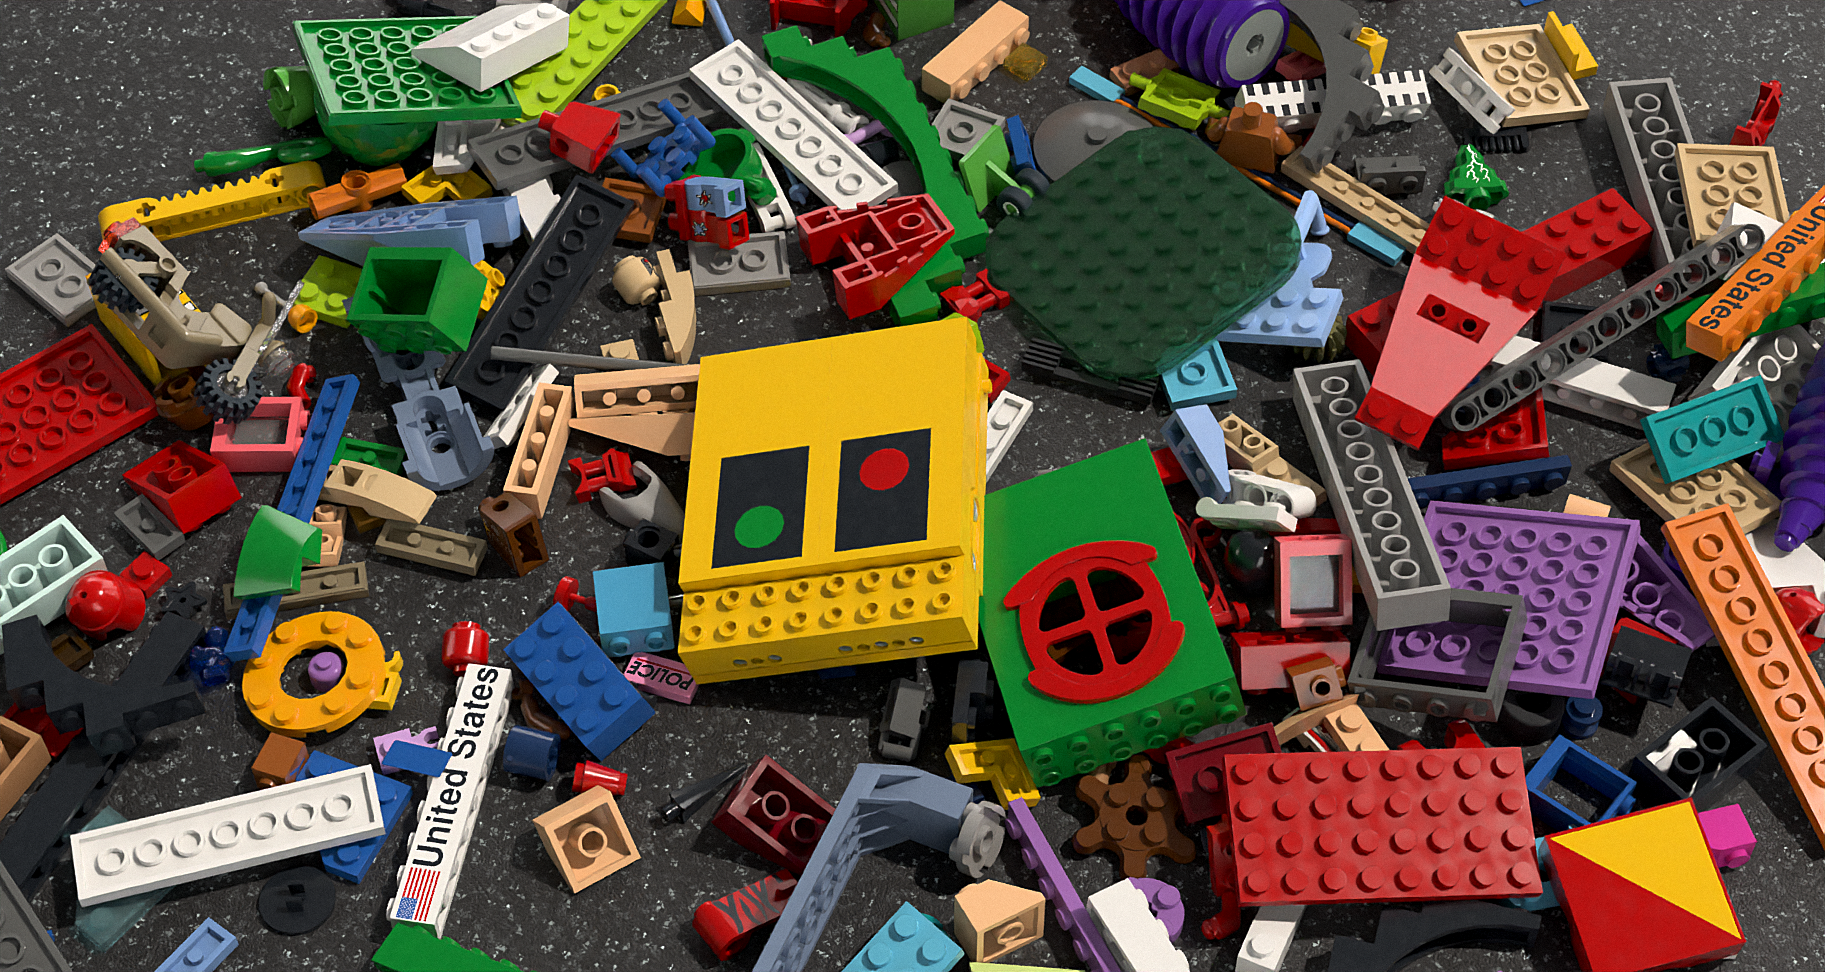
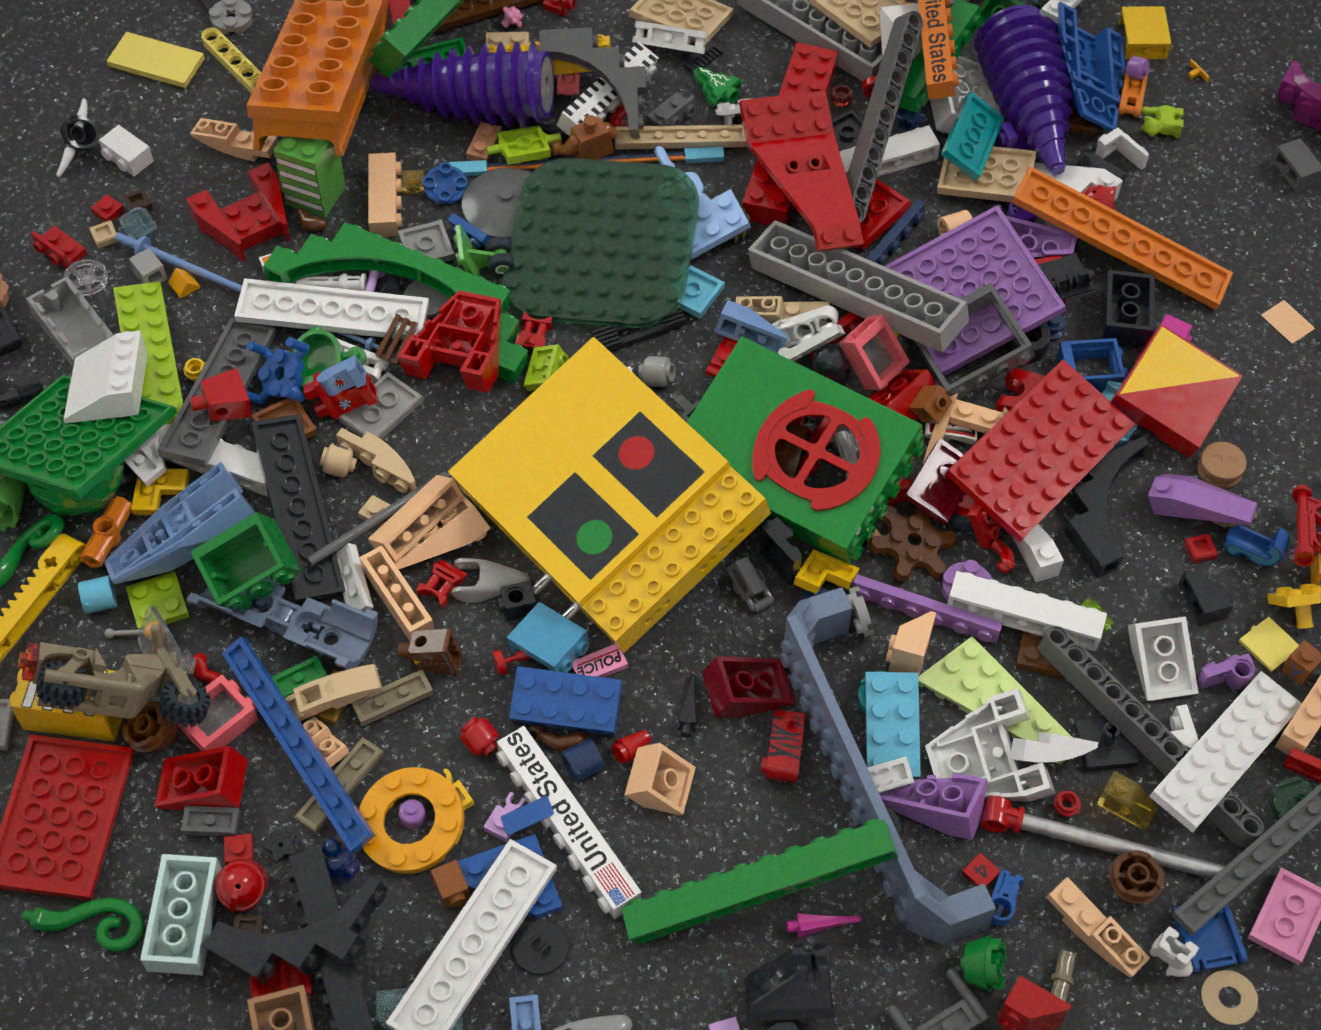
camera: 45 degrees left, 5 degrees up
(275, 554) = (323, 771): green slope -> none
(280, 242) = (97, 594): none -> medium azure piece
(816, 197) = (405, 322): none -> reddish brown tile
(1052, 85) = (445, 184): none -> blue dish
(1056, 429) = (657, 371): none -> light grey head
(1613, 283) = (841, 95): none -> clear red tile

